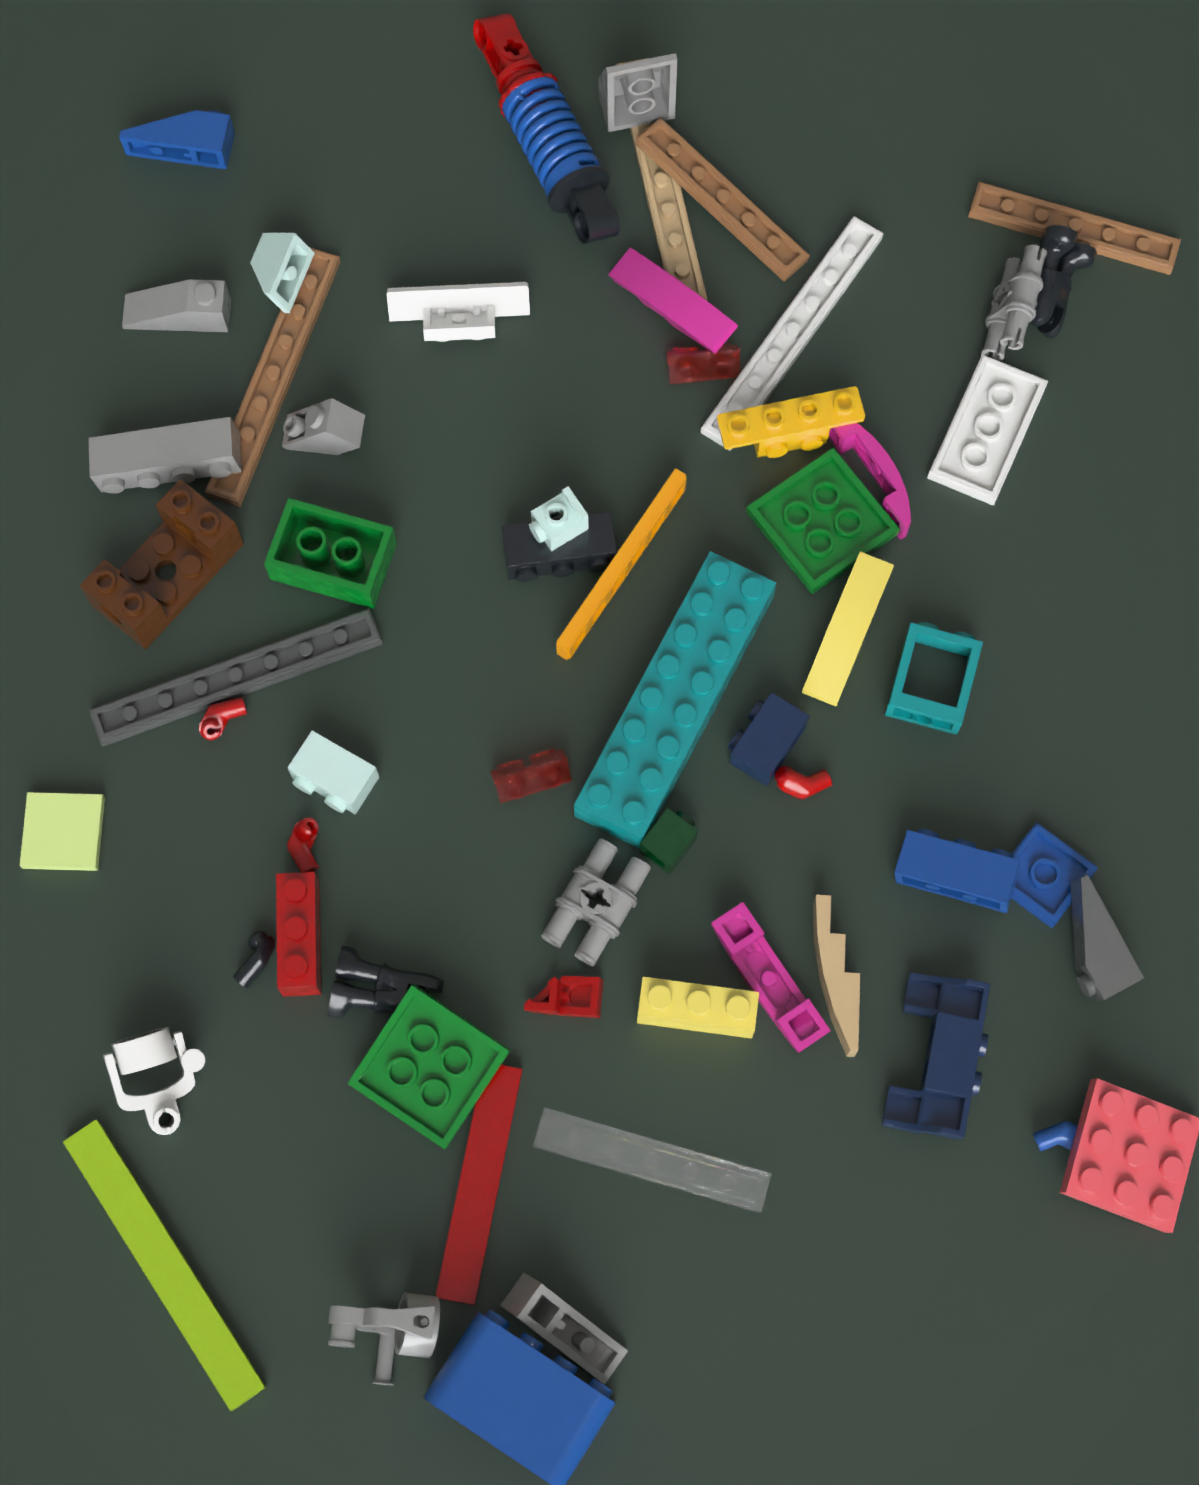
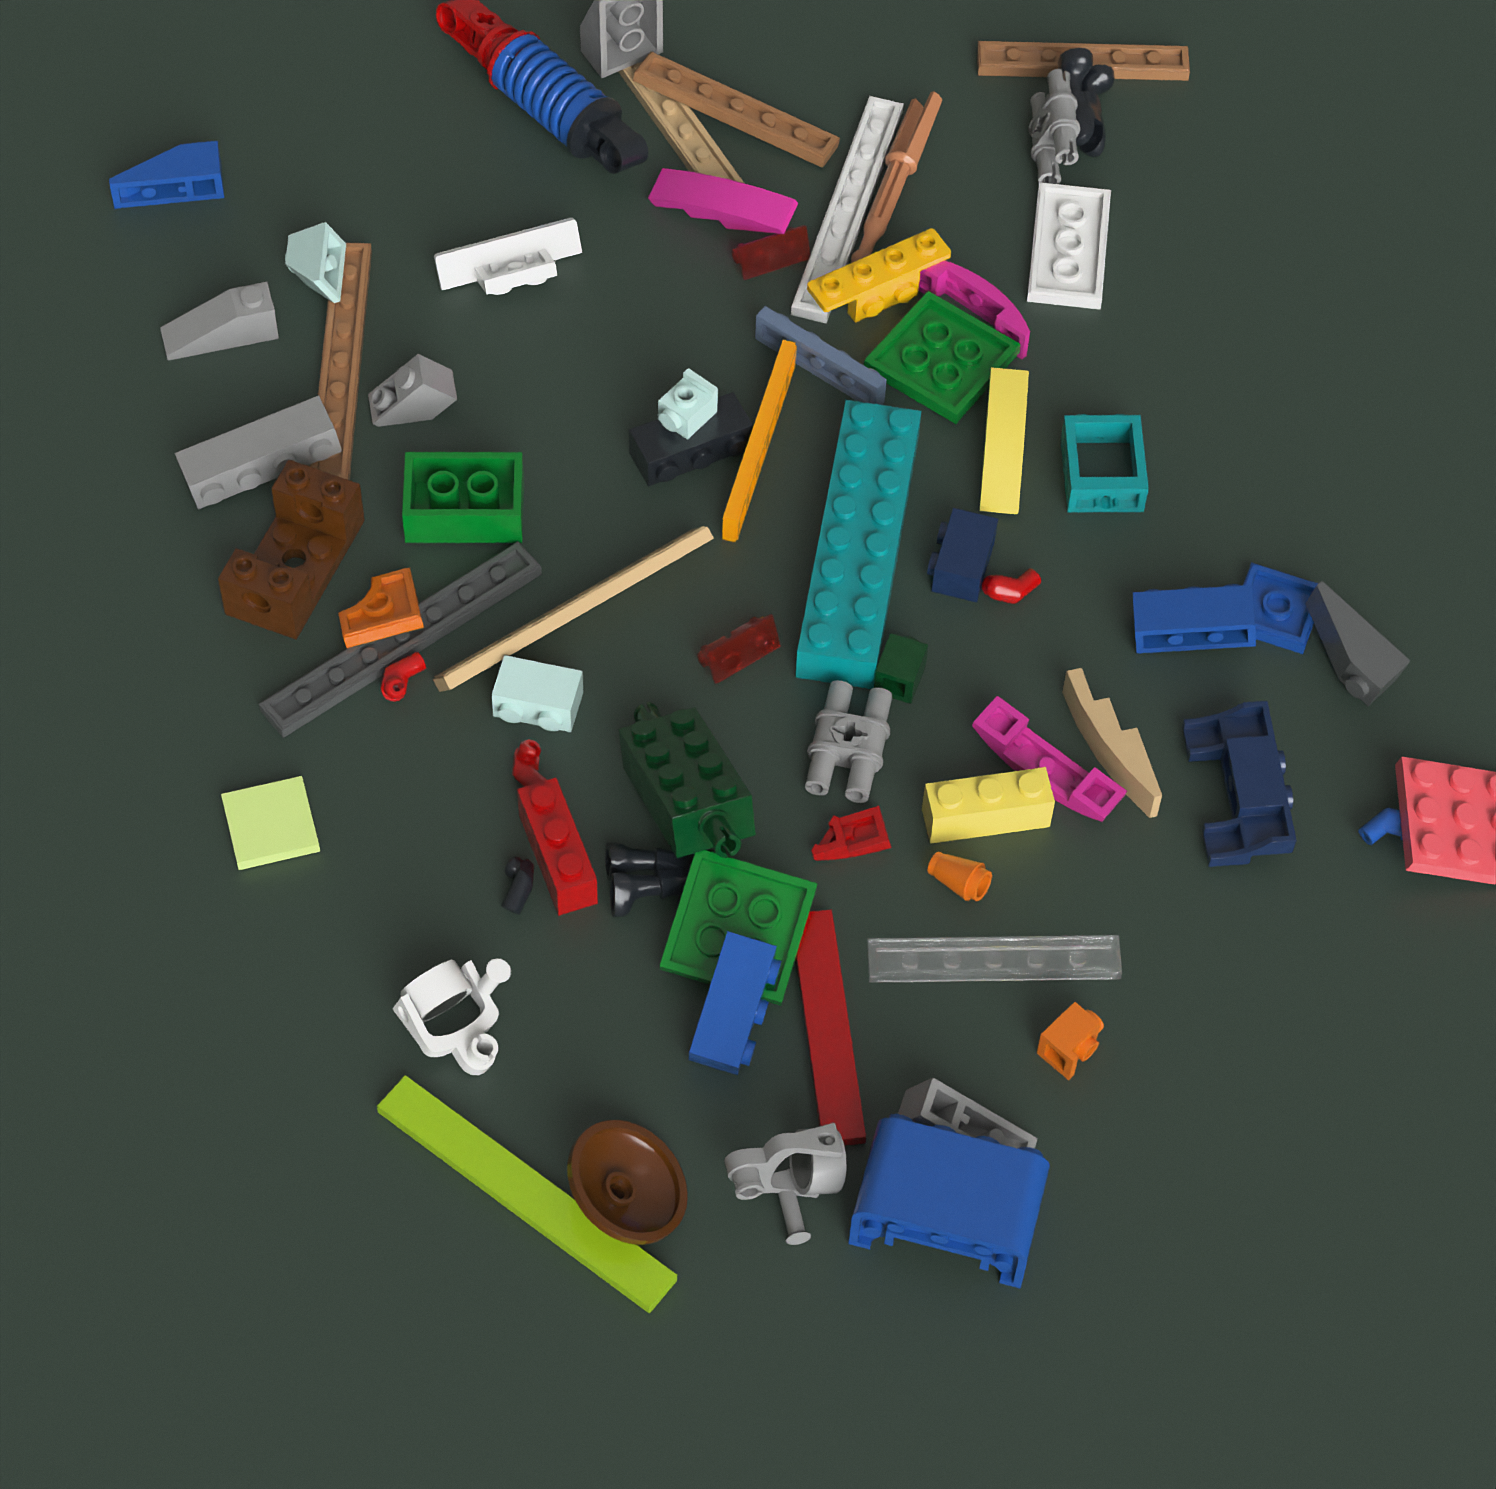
camera: 20 degrees left, 15 degrees down
(228, 648) = (385, 611): none -> orange tile
(268, 1297) = (627, 1182): none -> reddish brown dish
(394, 693) = (572, 608): none -> tan tile
(398, 1145) = (734, 1004): none -> blue brick
(426, 913) = (686, 781): none -> dark green brick
(650, 1070) = (961, 875): none -> orange cone
(691, 1266) = (1069, 1039): none -> orange brick
(701, 482) = (821, 358): none -> sand blue plate
(857, 298) = (901, 162): none -> nougat piece

